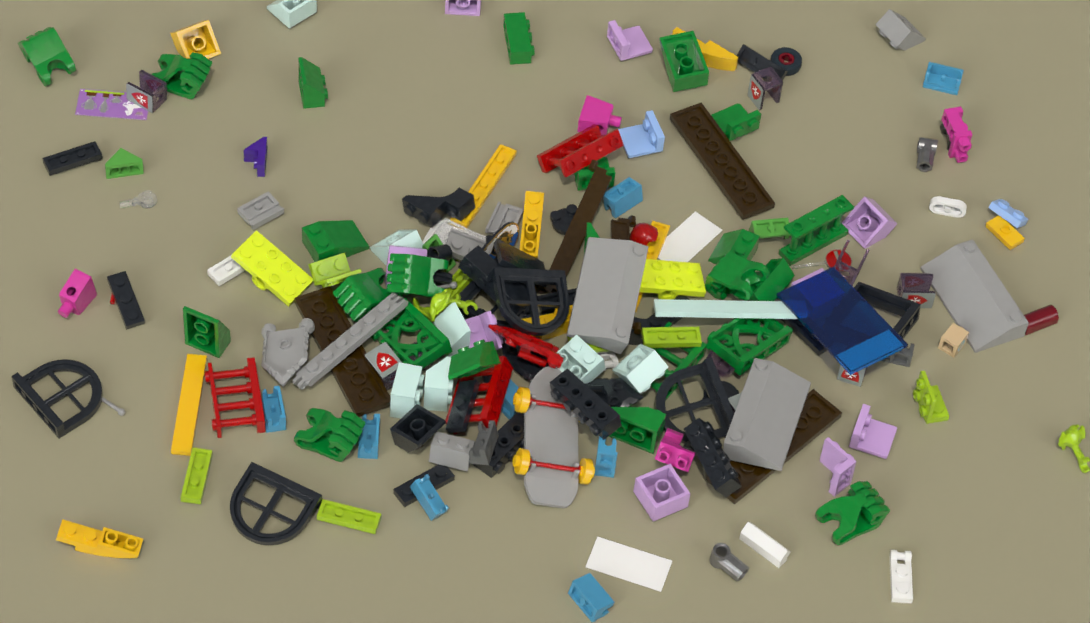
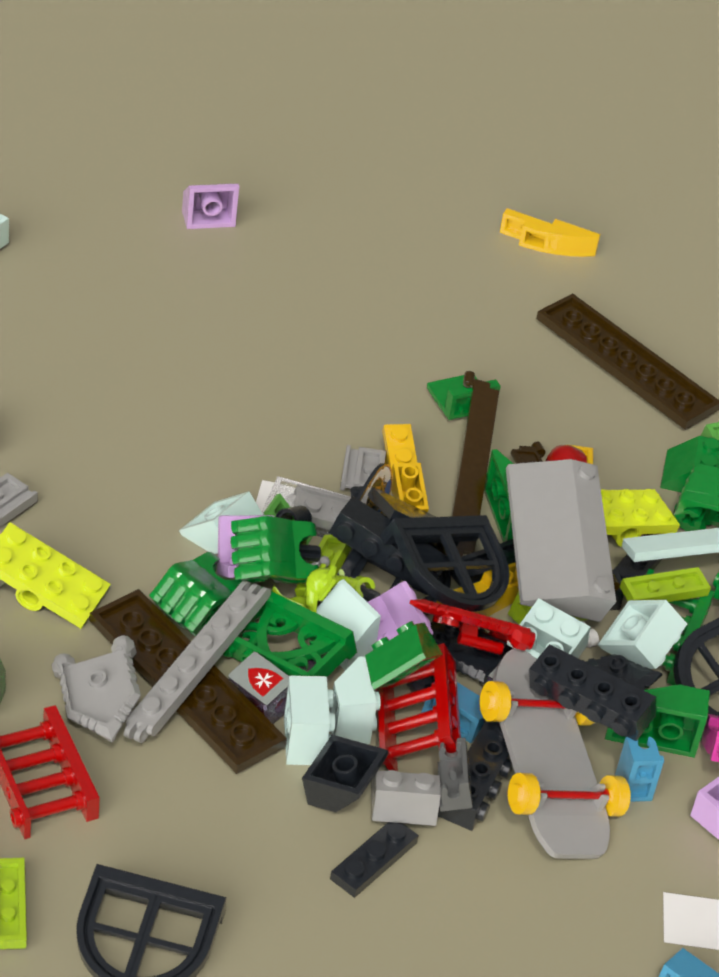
camera: 15 degrees left, 10 degrees down
(273, 410) = (109, 780): dark azure hinge -> none
(311, 84) = (30, 329): green slope -> none
(329, 434) = (207, 801): green piece -> none
(331, 270) = (135, 567): lime bracket -> none
(332, 238) = (121, 529): green slope -> none
(349, 516) = (275, 926): lime plate -> none
(369, 438) = (268, 798): dark azure hinge -> none
(428, 497) = (392, 875): dark azure hinge -> none
(432, 209) = (258, 465): black arch -> none
(462, 406) = (400, 728): black plate -> none
(488, 180) = (316, 429): yellow tile -> none
(518, 38) = (299, 244): green brick -> none
(562, 218) = (445, 457): black piece -> none
(580, 150) = (438, 366): red fence -> none
(599, 113) = (442, 326): dark pink torso -> none
(623, 197) = (517, 418): dark azure hinge -> none
(628, 42) = (445, 235): lavender bracket -> none
(643, 138) = (517, 344): light blue bracket -> none
(684, 61) = (534, 246): green slope -> none
(688, 239) = (625, 460): white sticker -> none
(737, 121) = (628, 312): green bracket -> none
(757, 62) = (631, 243): black plate -> none
(757, 86) = (647, 263): clear purple piece -> none
(787, 54) = (657, 237): black bush -> none

